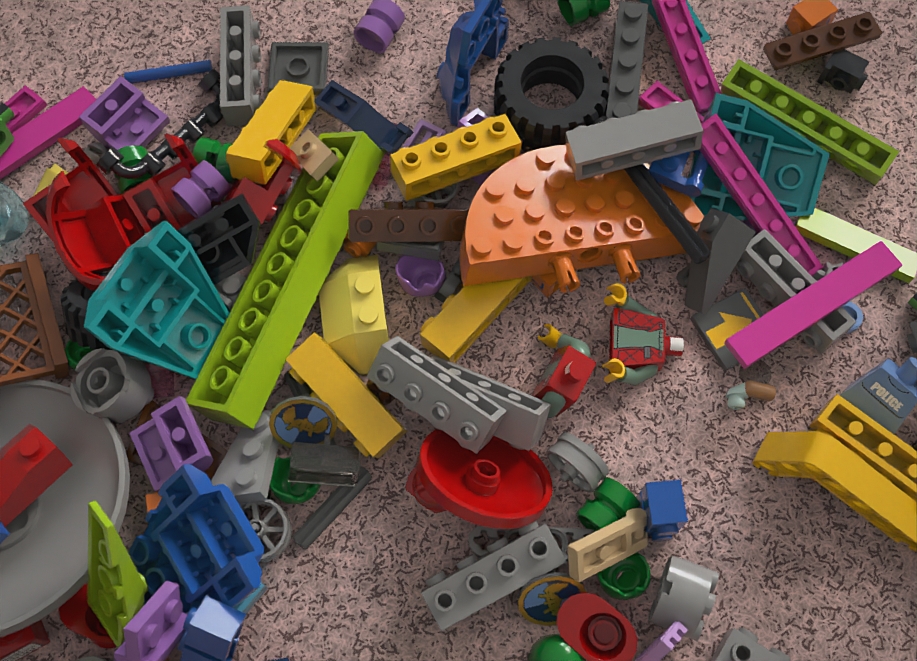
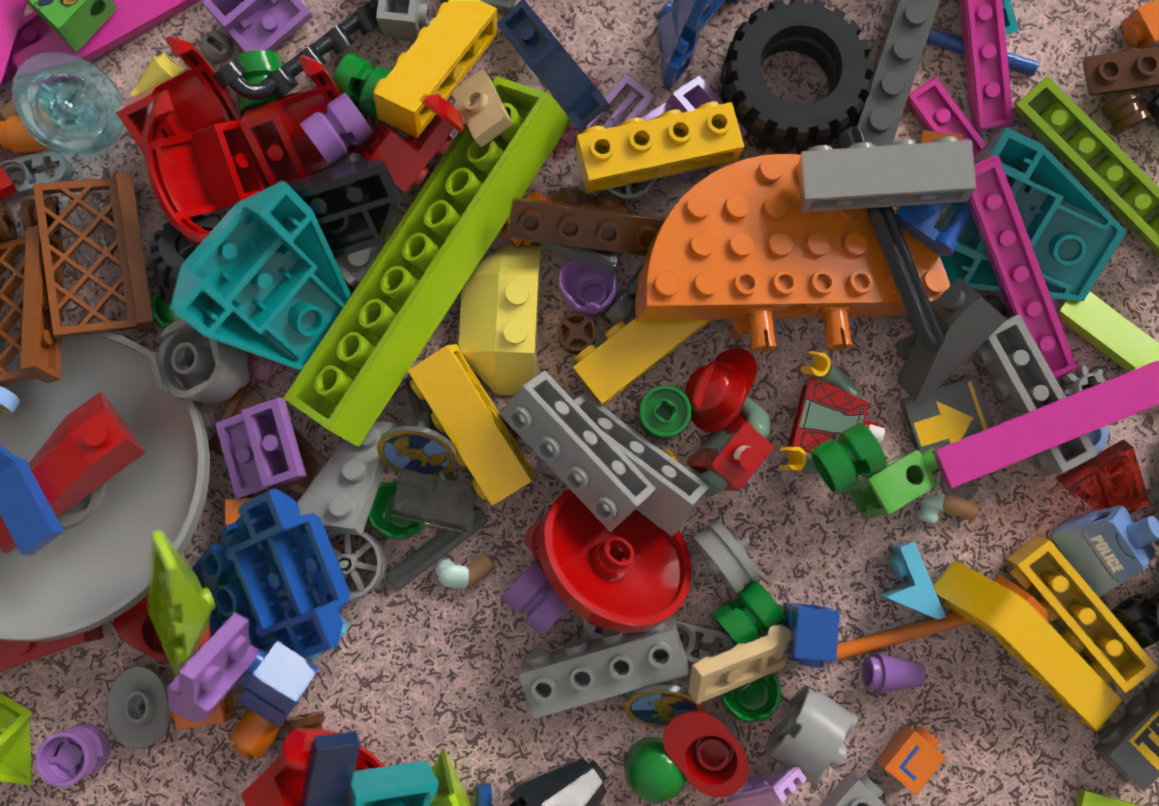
camera: 10 degrees right, 15 degrees up
(359, 525) = (463, 576): none -> arm
(415, 307) = (576, 323): none -> reddish brown wheel
(426, 528) = (537, 597): none -> medium lavender wheel
(502, 365) = (664, 412): none -> green wheel
(542, 333) = (721, 389): none -> red piece
(662, 356) = (852, 456): none -> green wheel
(666, 57) = (955, 44): none -> blue bar
(700, 378) = (895, 486): none -> bright green torso
(737, 505) = (898, 635): none -> orange bar
(739, 536) = (890, 673): none -> medium lavender cone
(743, 462) = (918, 590): none -> medium azure slope
(774, 604) = (911, 757): none -> orange brick
(806, 79) = (1125, 112): none -> reddish brown wheel
(871, 342) = (1108, 479): none -> clear red wing

